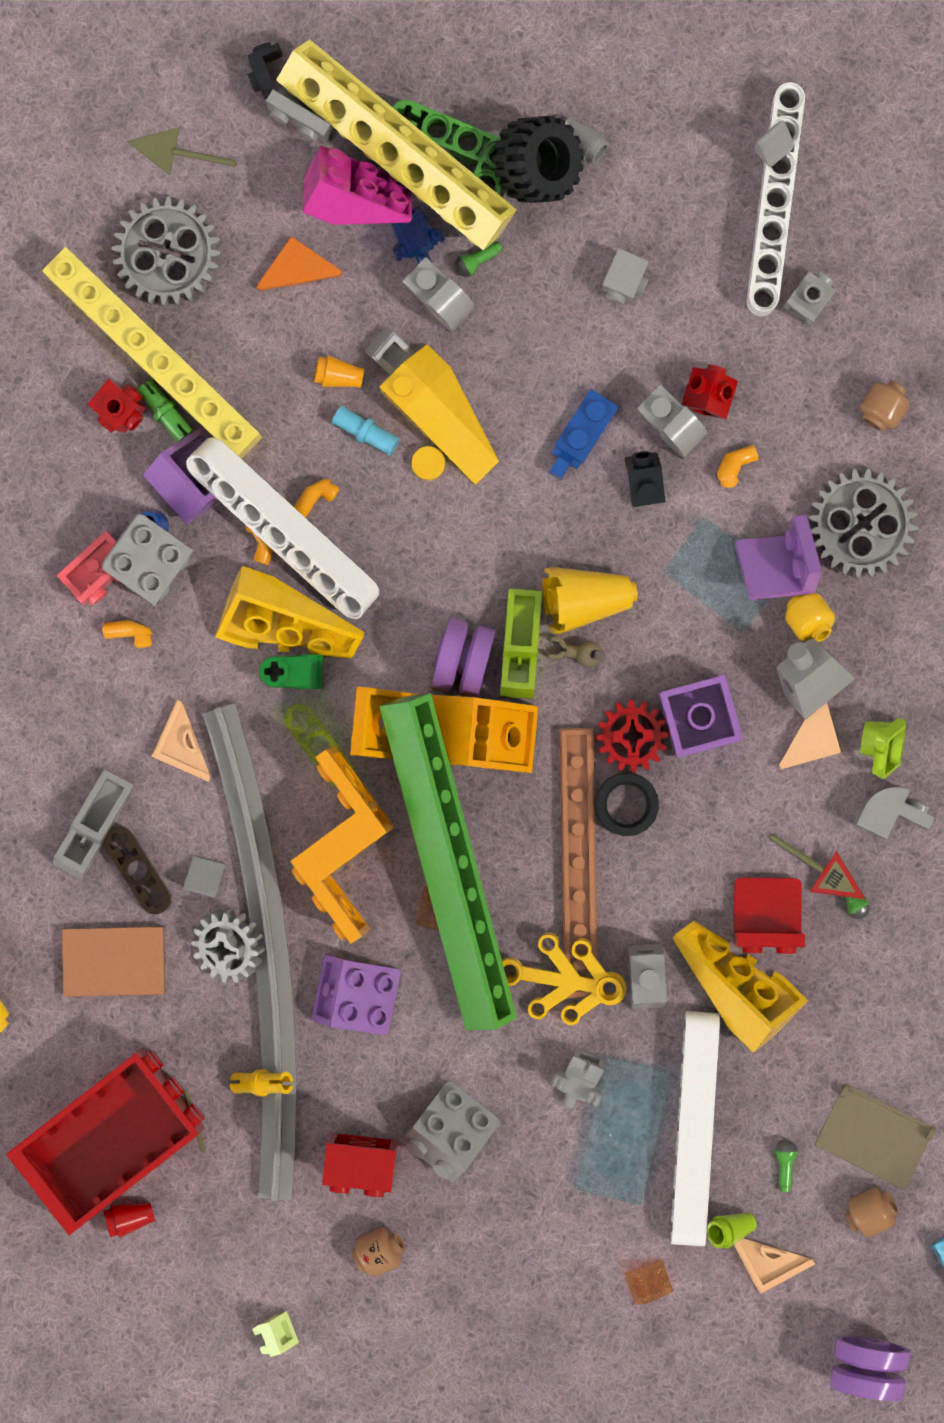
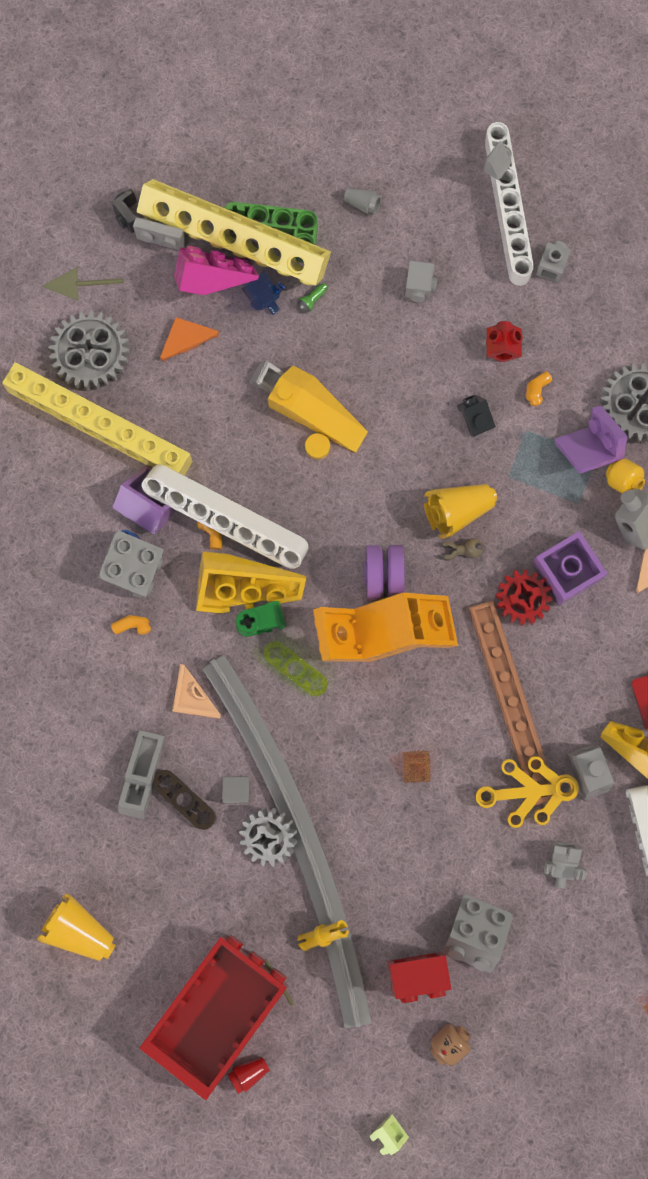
camera: 20 degrees left, 10 degrees down
(85, 573) = (90, 590): coral bracket -> none
(107, 404) = (81, 464): red brick -> none
(113, 961) = (183, 874): nougat tile -> none
(164, 410) = (115, 459): bright green pin -> none
(310, 495) = (241, 488): light orange arm -> none
(337, 373) = (232, 401): light orange cone -> none
(341, 845) = (333, 736): light orange bracket -> none
(355, 995) = (375, 848): medium lavender bracket -> none
(365, 430) = (266, 435): medium azure pin -> none
(440, 294) = (297, 326): light grey brick -> none
(448, 862) = (418, 725): bright green brick -> none
(521, 643) = (422, 554): lime slope -> none
(558, 155) = (336, 215): black tyre -> none
(582, 432) = (421, 395): blue hinge -> none
(624, 1131) = (609, 896): clear light blue tile -> none
(651, 800) = (549, 634): black tyre -> none
(675, 423) = (490, 368): light grey brick -> none
(885, 405) = (630, 318): medium nougat head -> none

